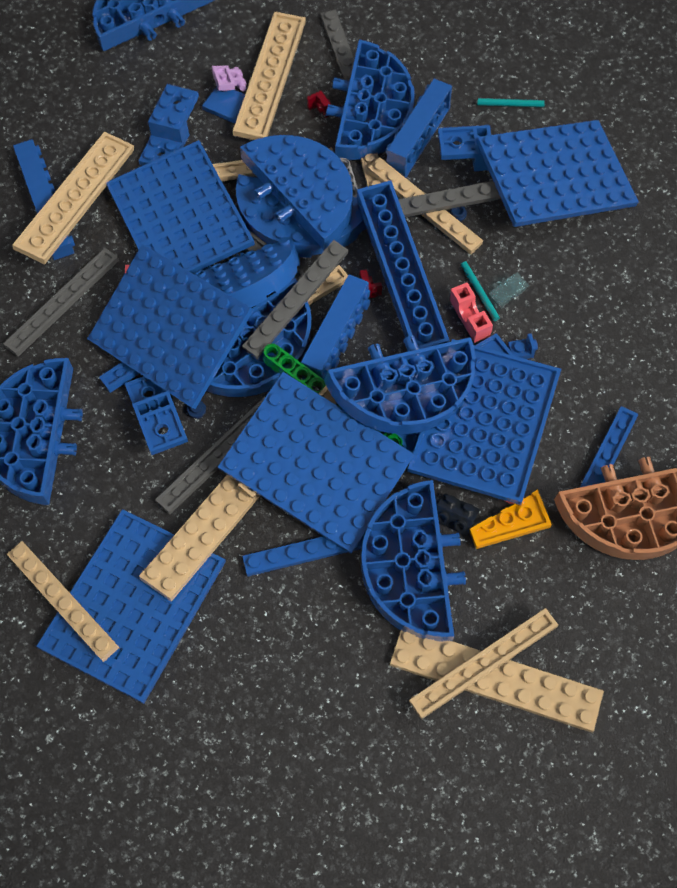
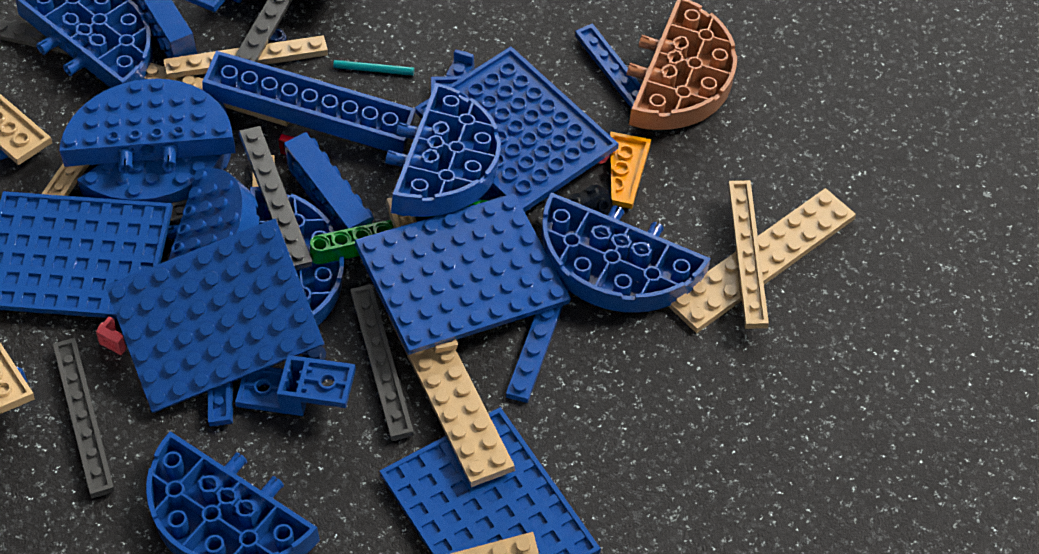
camera: 60 degrees left, 10 degrees down
(318, 100) = (49, 74): dark red bracket -> none
(464, 303) = (382, 84): coral arch -> none
(508, 289) = (393, 45): clear light blue slope -> none

